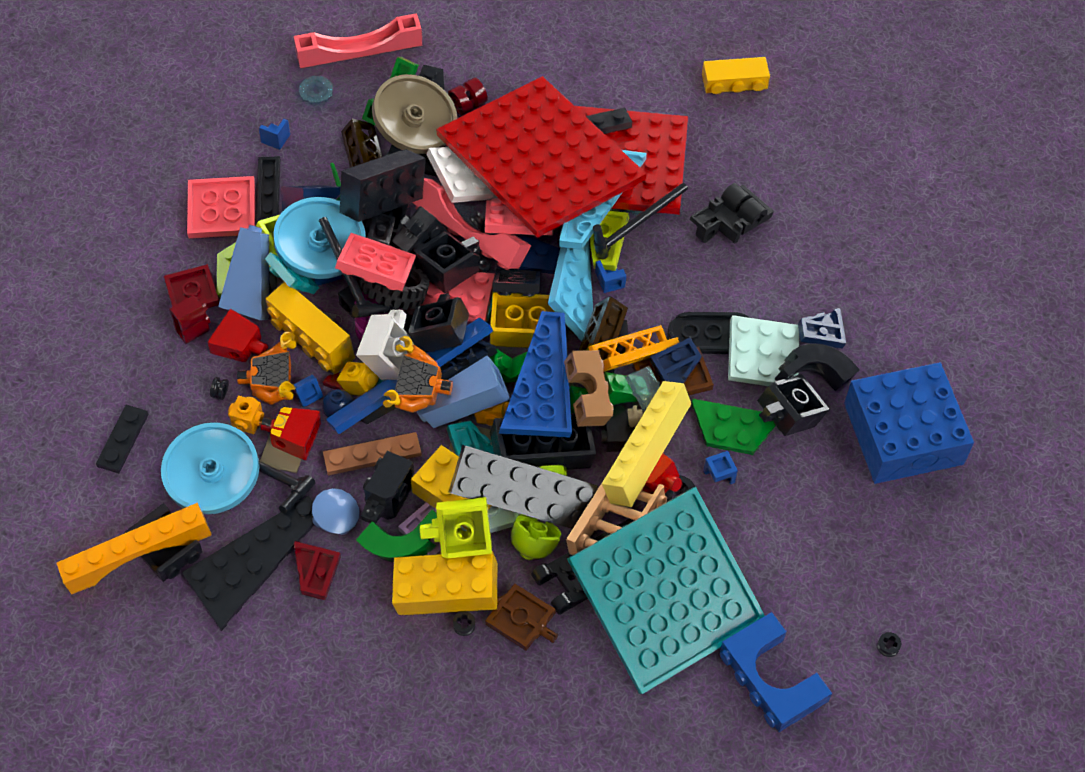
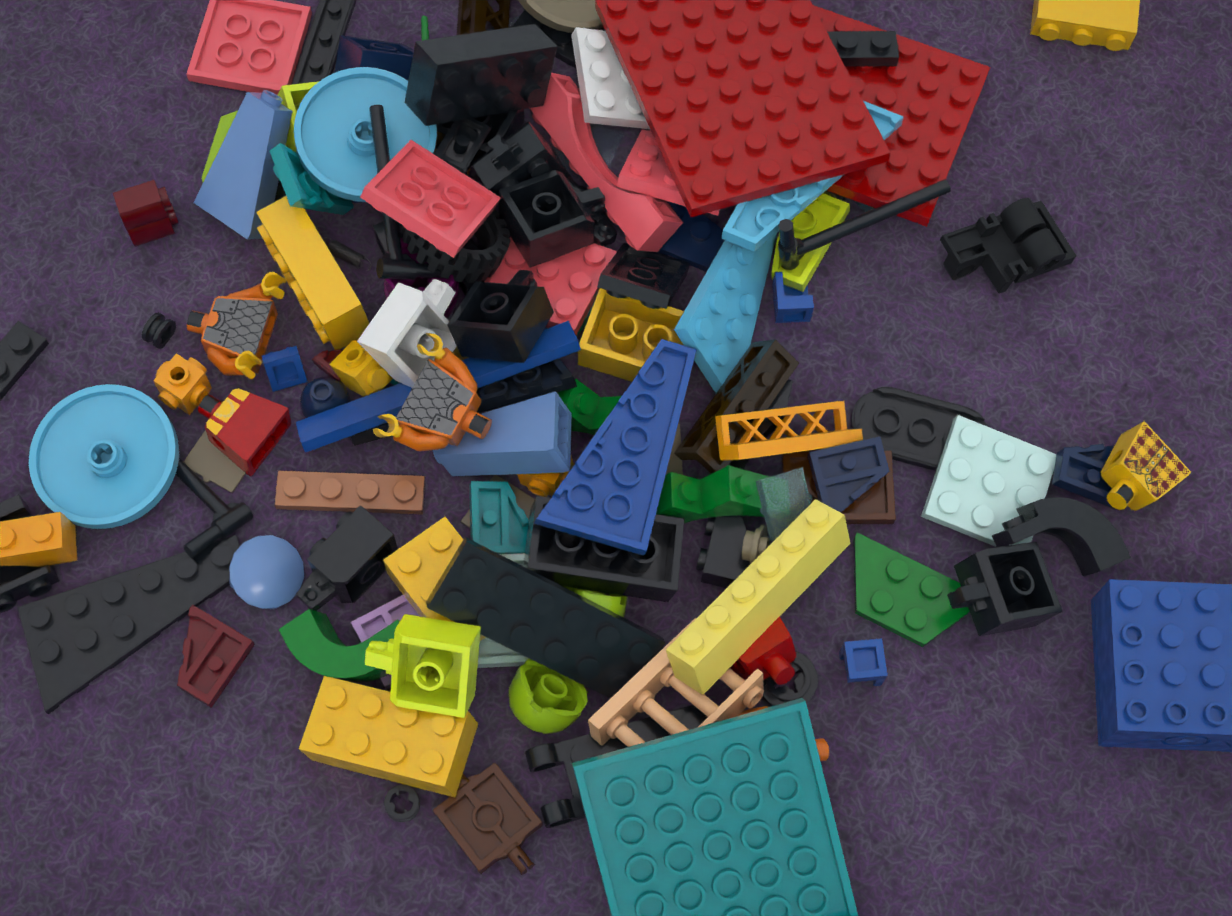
camera: 15 degrees right, 10 degrees up
(192, 282) = (170, 159): dark red plate -> none
(236, 338) = (207, 258): red torso -> none
(479, 221) = (618, 158): black bush -> none
(587, 369) = (701, 455): medium nougat arch -> none
(850, 319) = (1141, 469): none -> yellow torso

